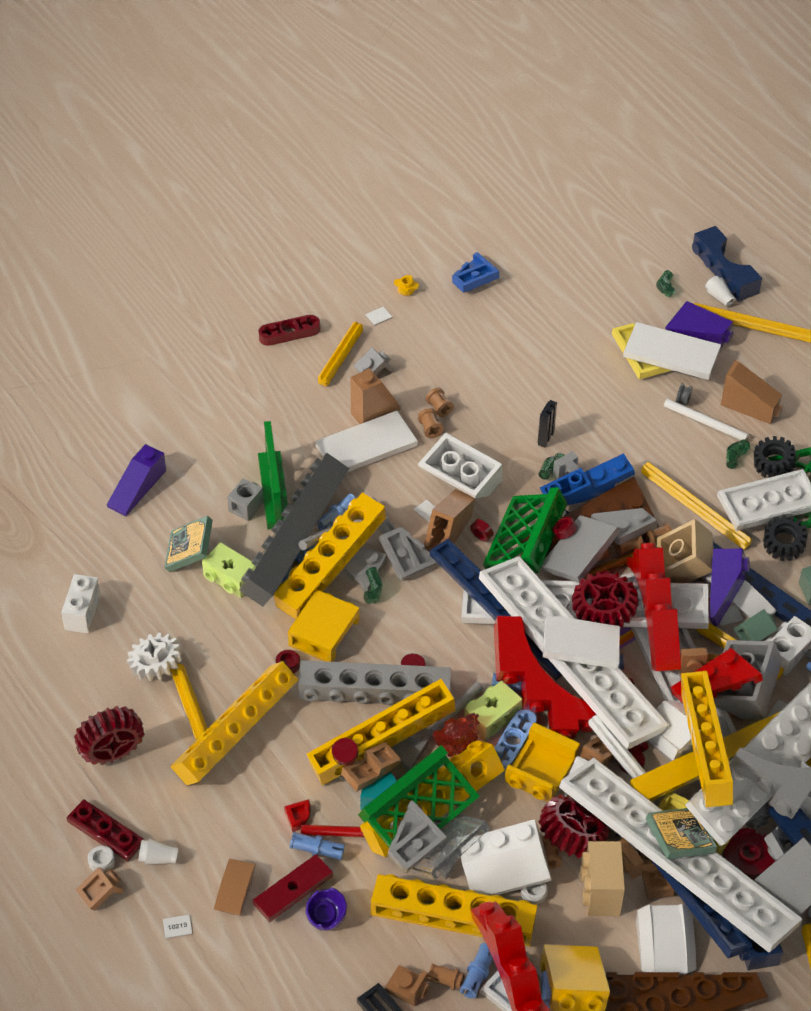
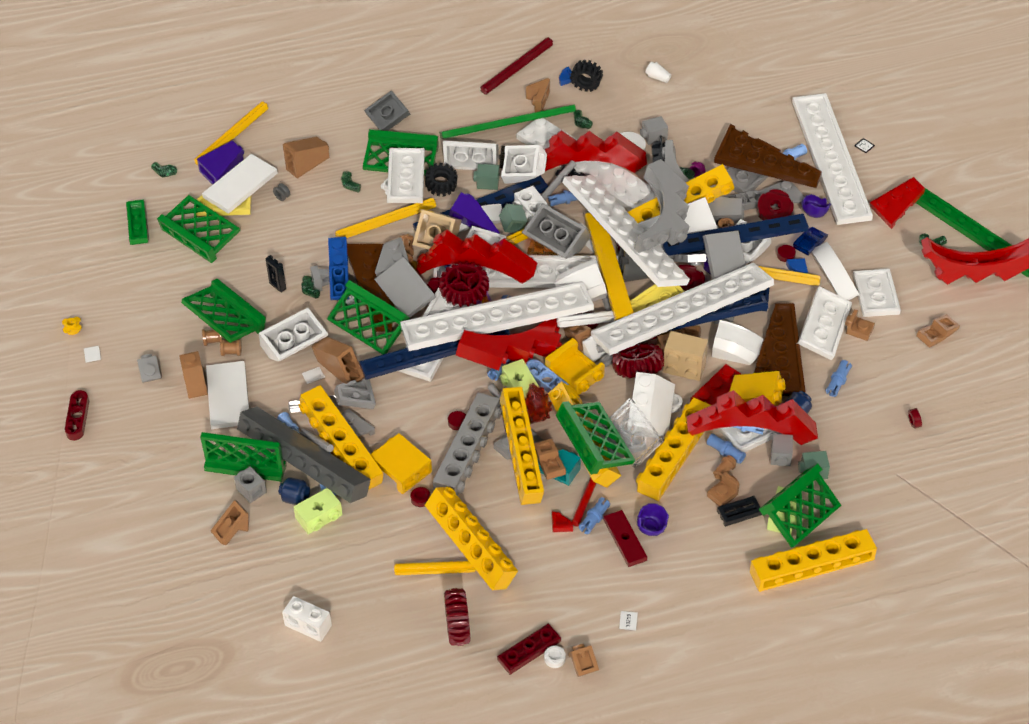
camera: 70 degrees left, 0 degrees up
(138, 479) = (192, 554): dark purple slope -> none
(154, 656) = (385, 580): white gear -> none
(157, 853) = (564, 617): white cone -> none
(187, 498) = (232, 520): none -> medium nougat slope
(188, 544) = (281, 530): tile -> none
(234, 887) = (612, 573): medium nougat slope -> none
(248, 539) = (294, 491): none -> dark blue head
(340, 354) = (123, 387): yellow axle -> none
(345, 751) = (536, 466): dark red tile -> none
(375, 588) = (378, 422): clear green arm -> none
(415, 839) = (625, 443): light grey wing -> none
(474, 274) = (86, 278): blue wing -> none
(481, 530) = (355, 342): dark red tile -> none
(490, 406) = (233, 304): none -> green fence
(564, 528) = (382, 290): dark red tile -> none
(565, 930) = (717, 385): none -> red wing
(573, 334) = (192, 241): none -> green fence
(574, 286) = (137, 222): none -> green plate
(581, 641) = (497, 305): white tile -> none
(680, 833) = (672, 300): tile -> none
(692, 659) = (536, 254): medium nougat bracket -> none
(704, 419) = (309, 189): white bar -> none
(706, 739) = (618, 254): yellow brick -> none
(719, 290) = (190, 141): white cone -> none
(725, 673) = (556, 244): red wing -> none
(740, 279) = (146, 132): dark blue arch -> none
(774, 447) = (369, 152): black tyre -> none

